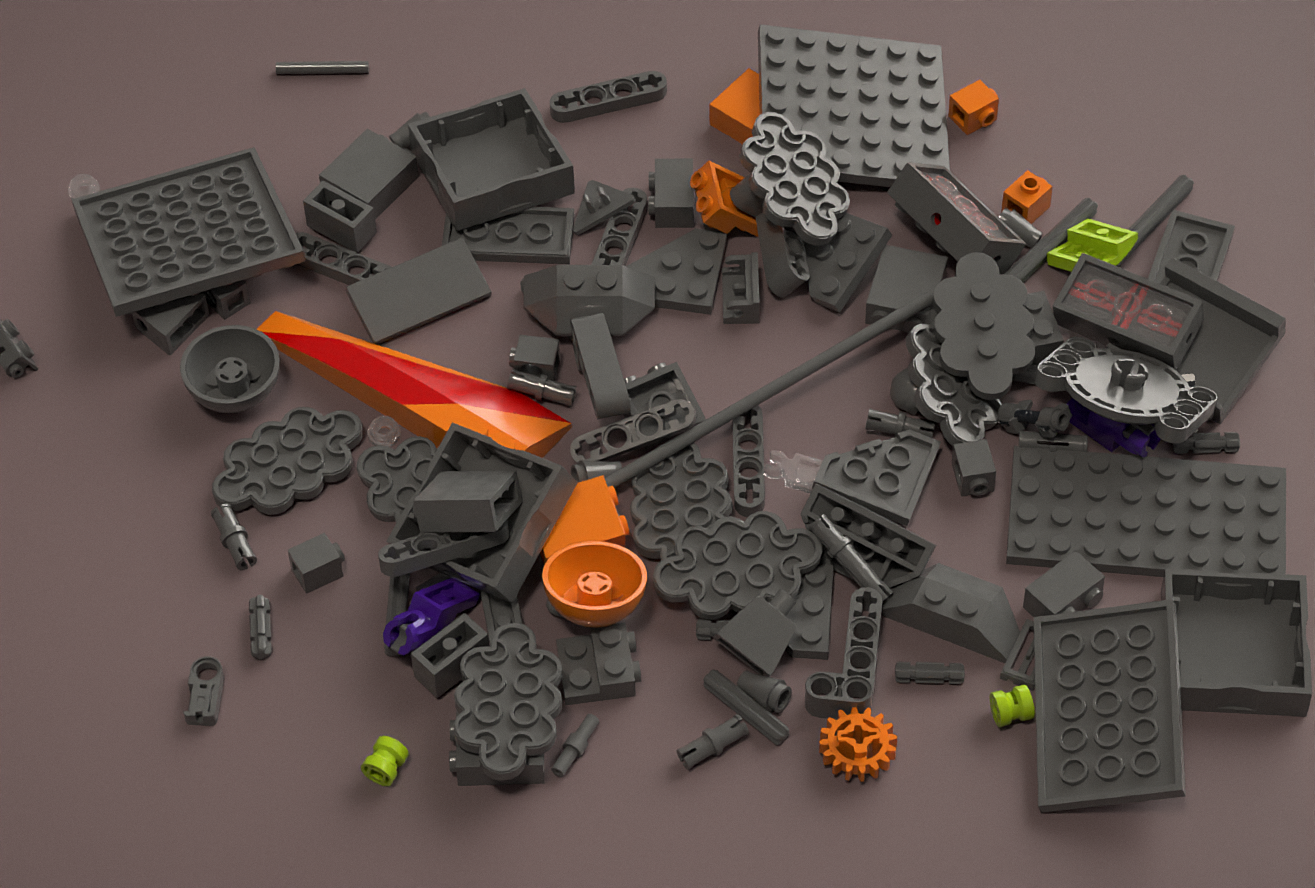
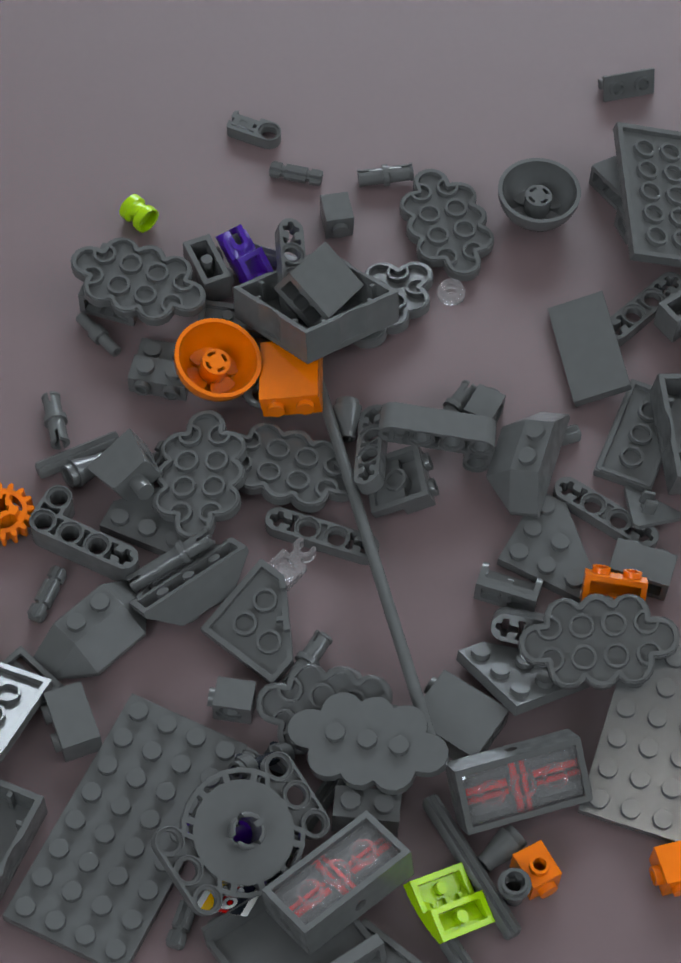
camera: 105 degrees right, 5 degrees up
(415, 391) = (469, 332): wedge -> none
(1056, 201) = (516, 880): none -> dark grey cone

